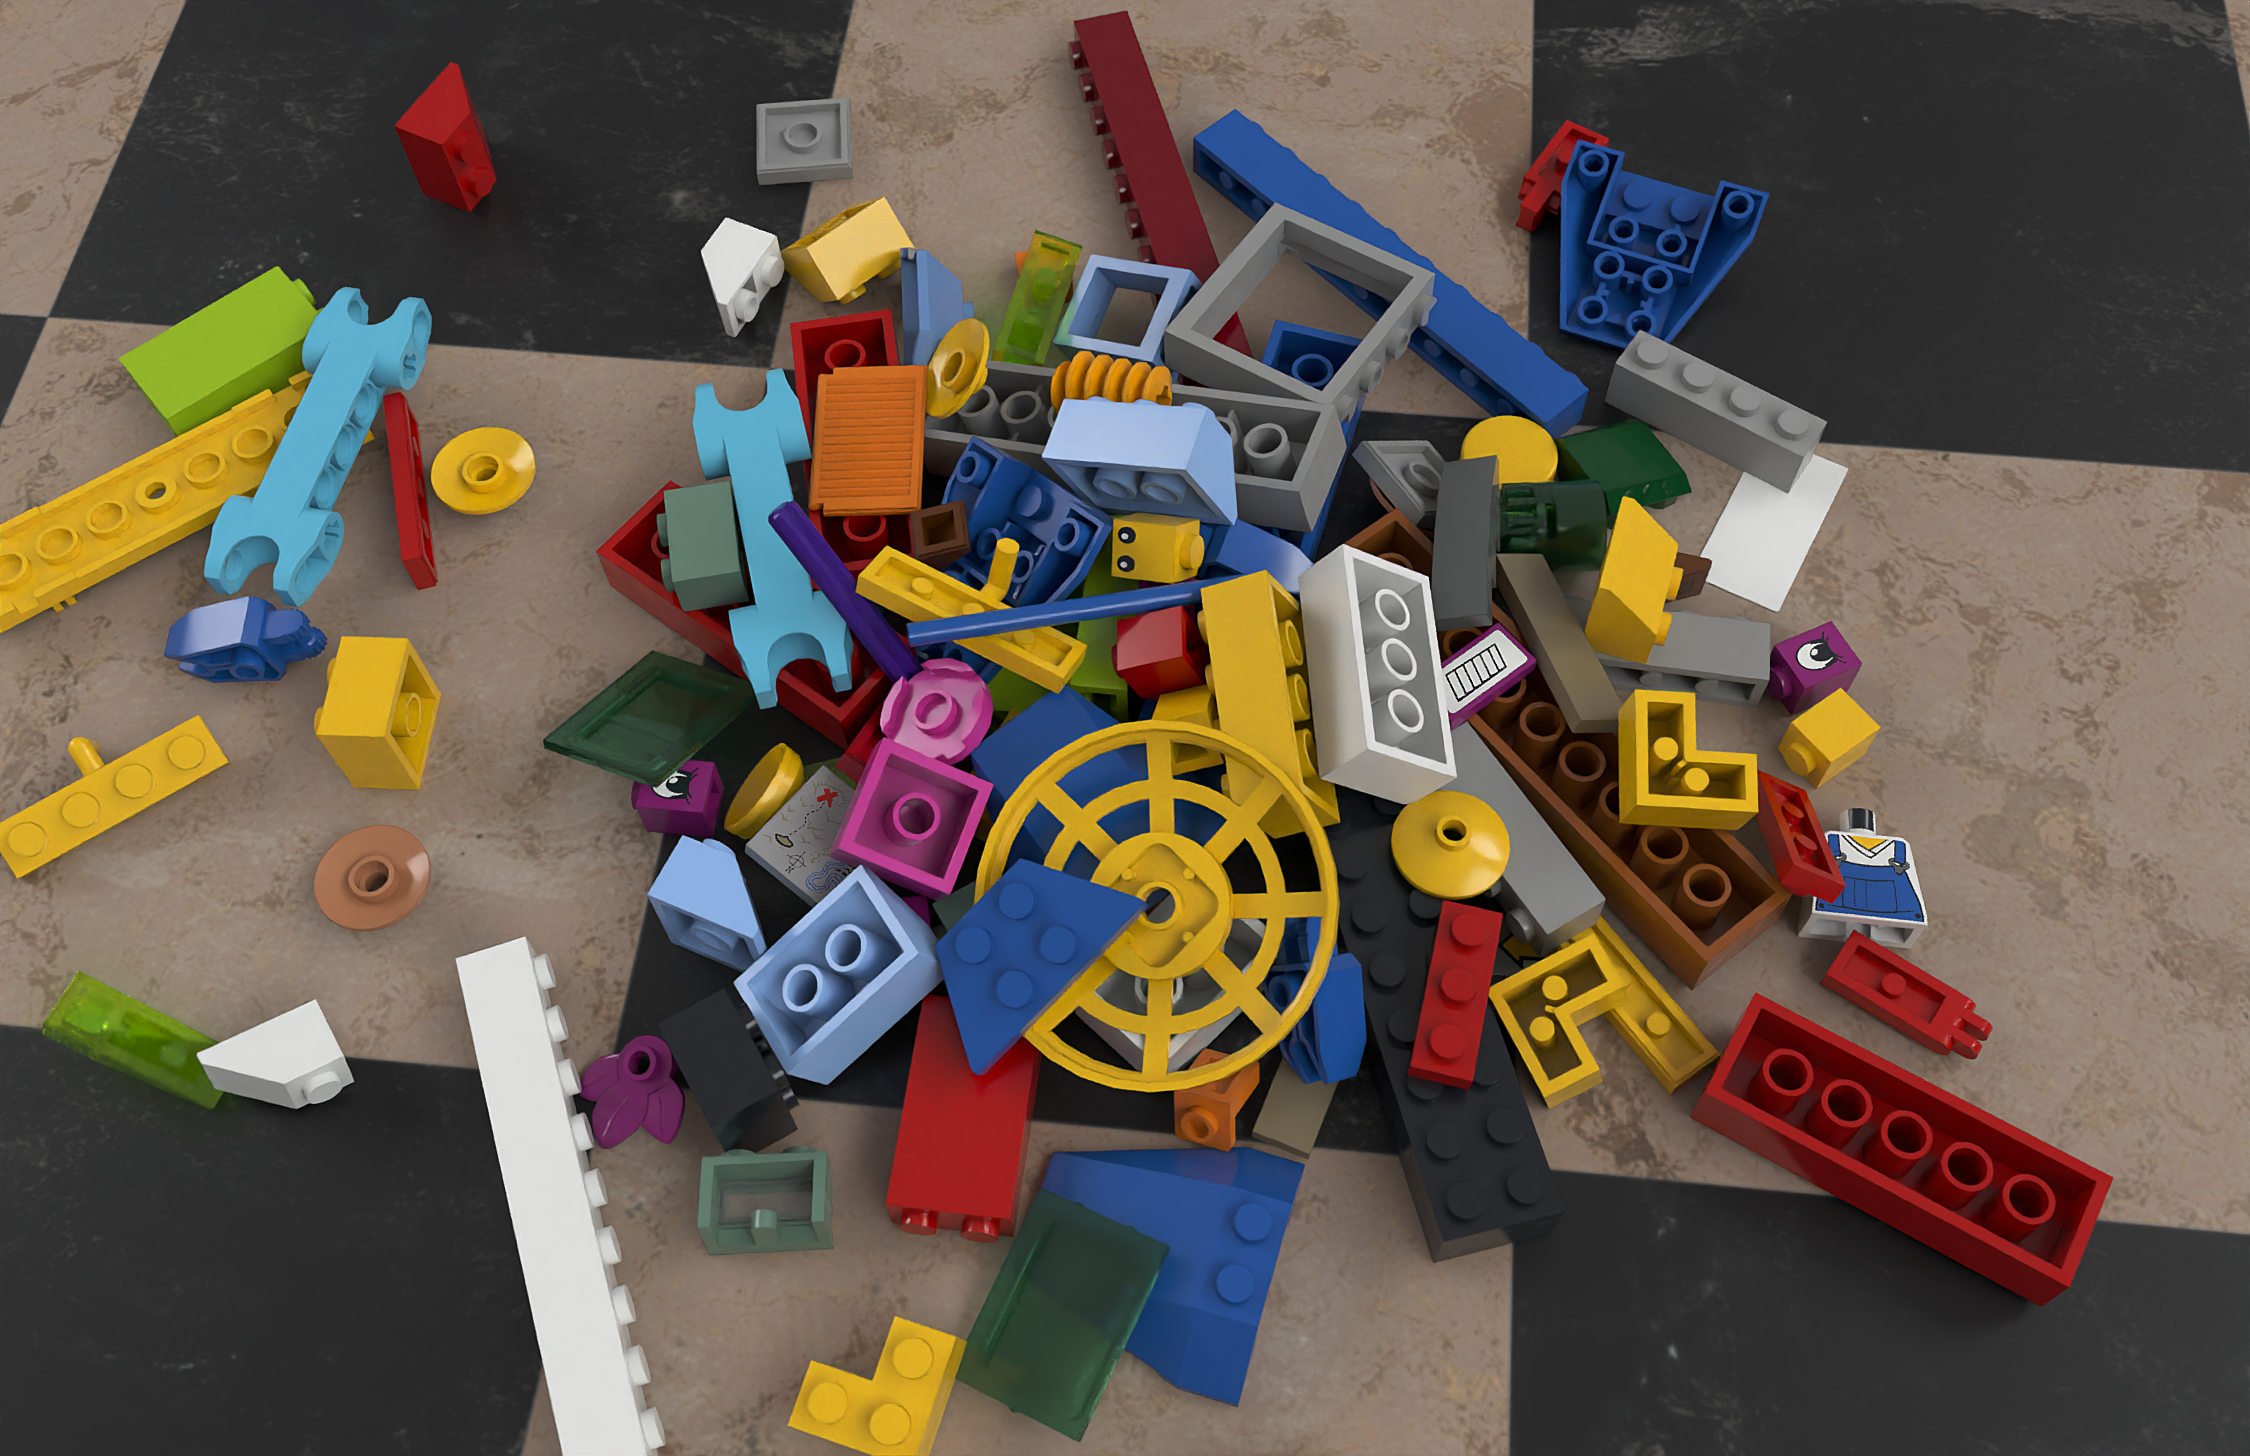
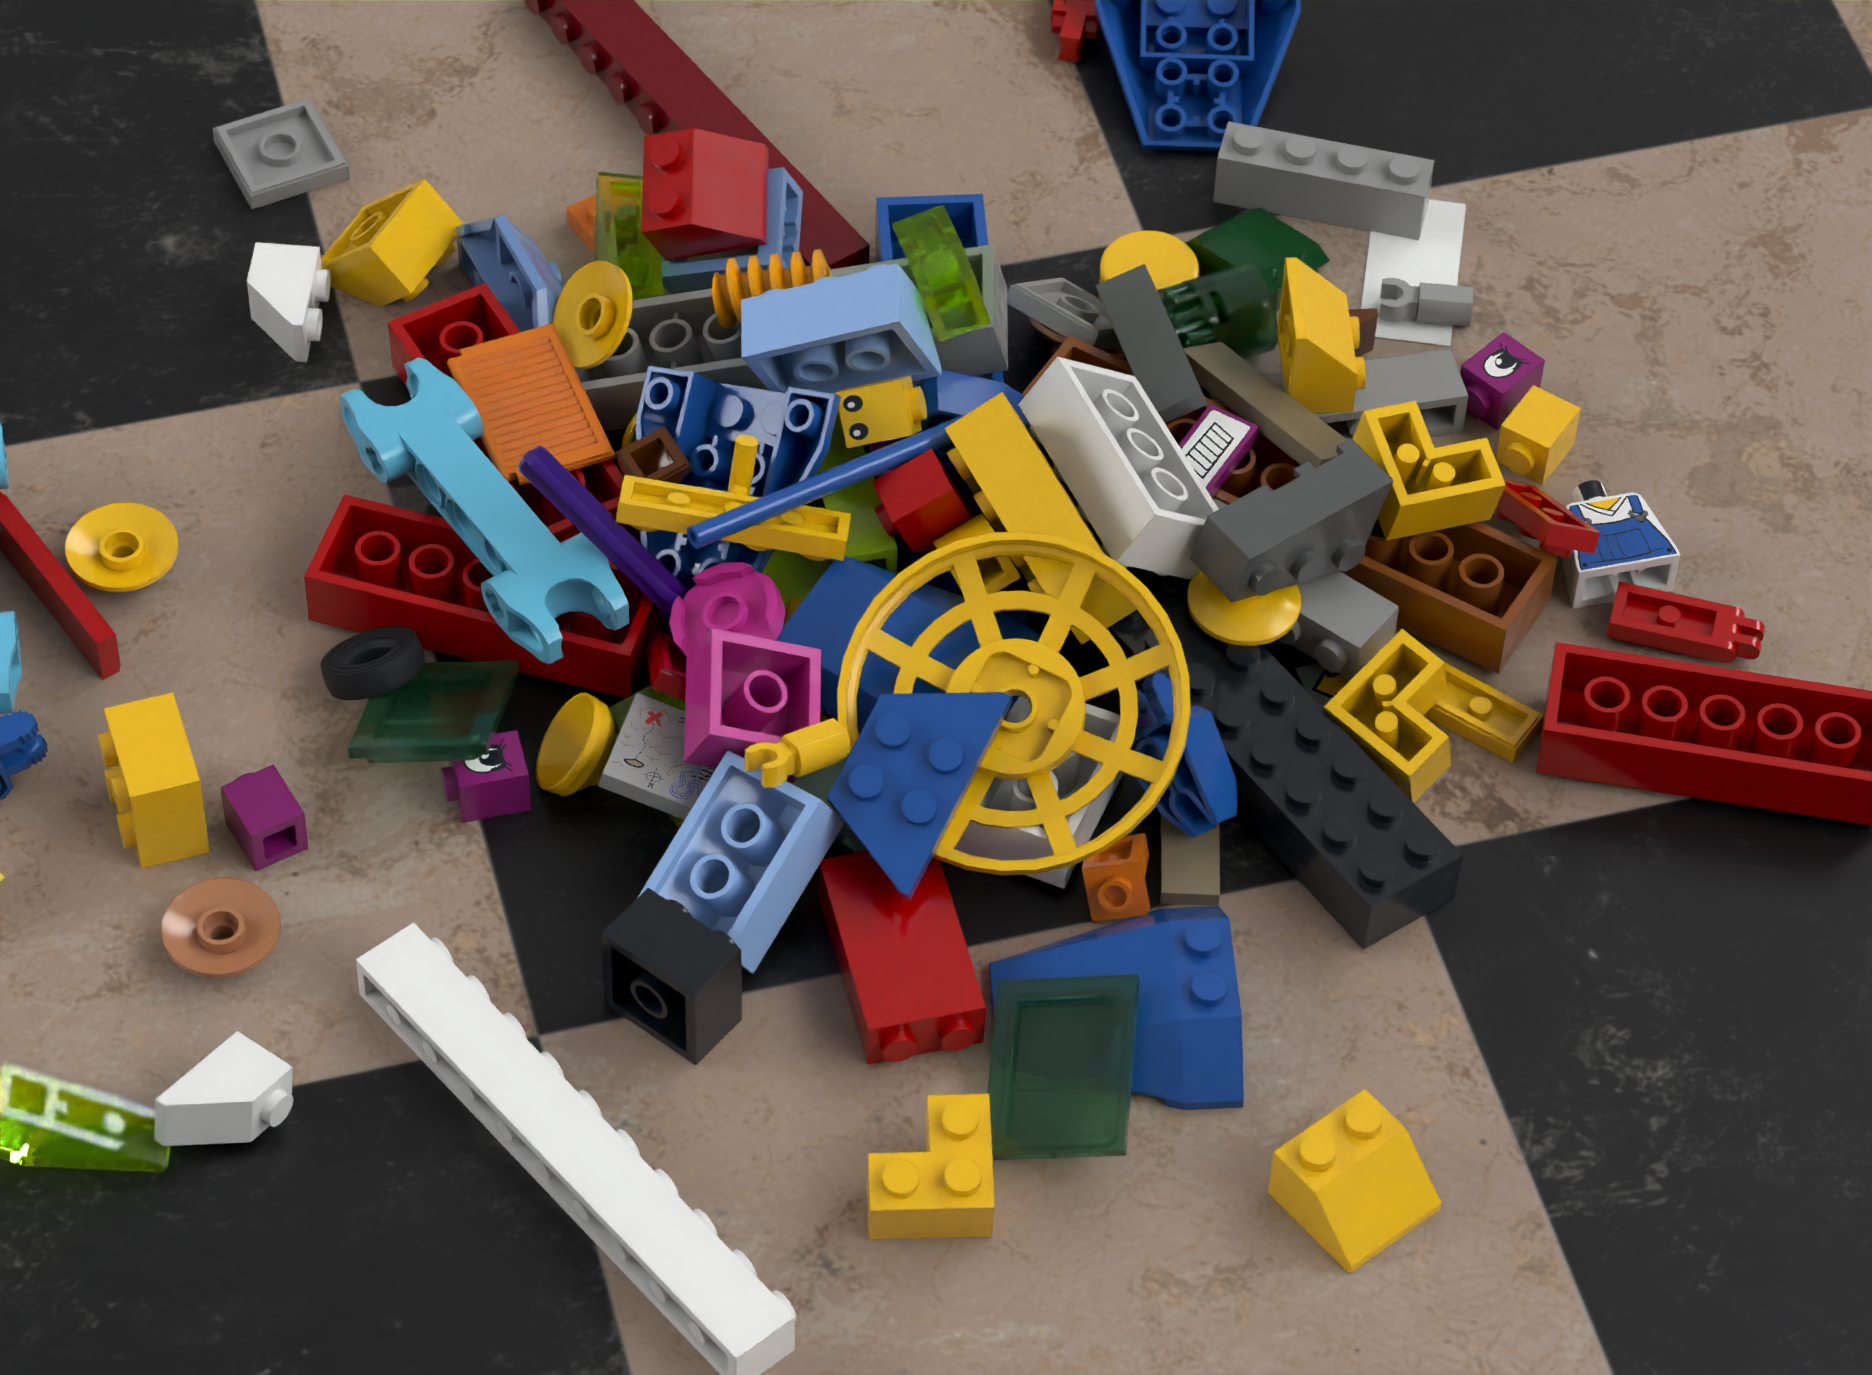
camera: 25 degrees left, 10 degrees down
(466, 775) = (264, 817): none -> magenta brick
(631, 650) = (373, 663): none -> black tyre
(632, 1099) = (579, 1033): magenta plate -> none
(704, 546) = (423, 536): sand green brick -> none
(708, 904) = (589, 848): light blue slope -> none
(766, 1201) = (753, 1072): sand green window -> none
(917, 894) = (799, 752): none -> yellow bar
(1108, 275) = (703, 193): none -> red slope
(1268, 422) = (941, 273): none -> clear neon green slope
(1281, 230) = (910, 121): light grey window -> none
(1455, 995) = (1301, 713): red plate -> none
(1461, 337) = (947, 133): blue brick -> none
(1518, 797) = (1296, 530): none -> dark grey wedge
(1768, 563) = (1426, 302): none -> light grey bar

